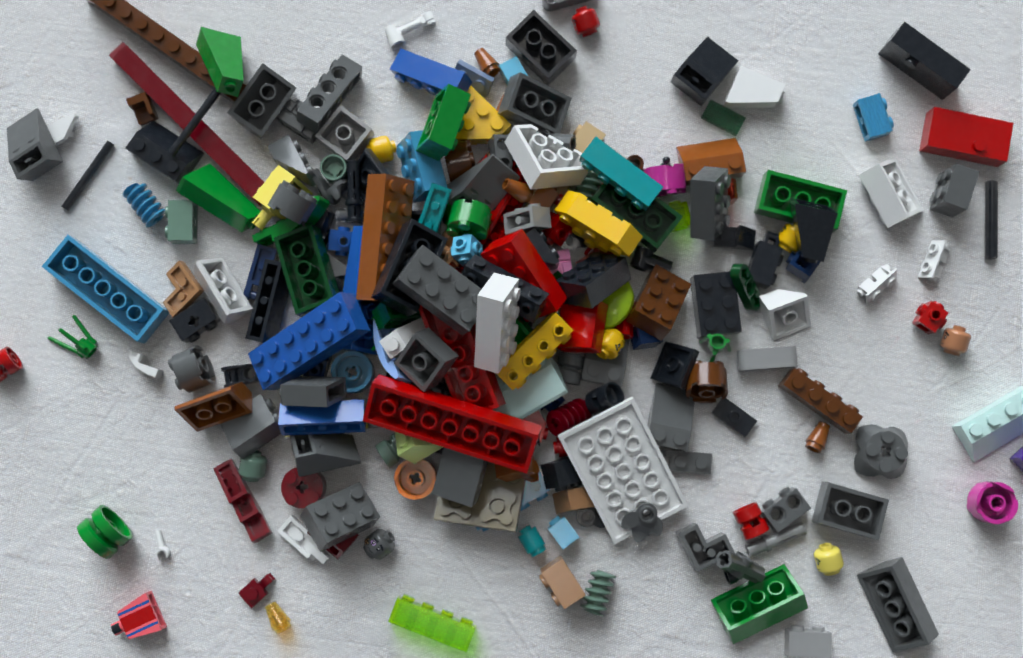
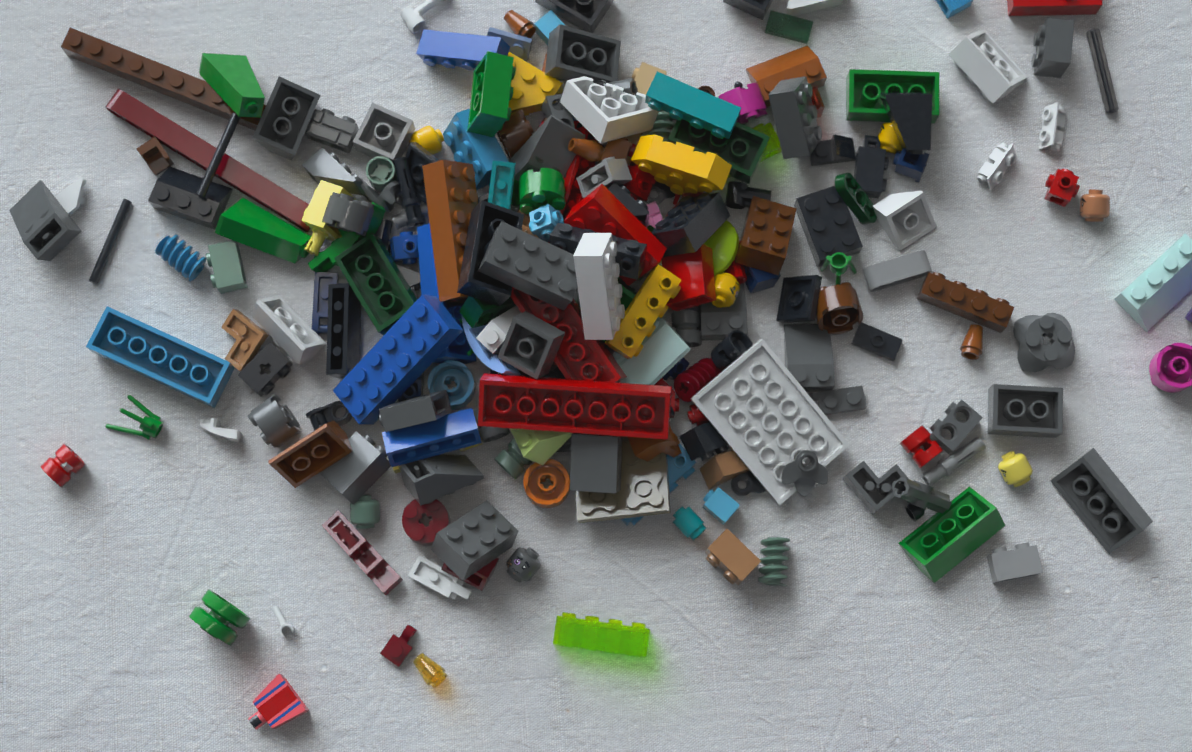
camera: 10 degrees left, 5 degrees down
(315, 118) = (357, 93): dark grey brick -> none

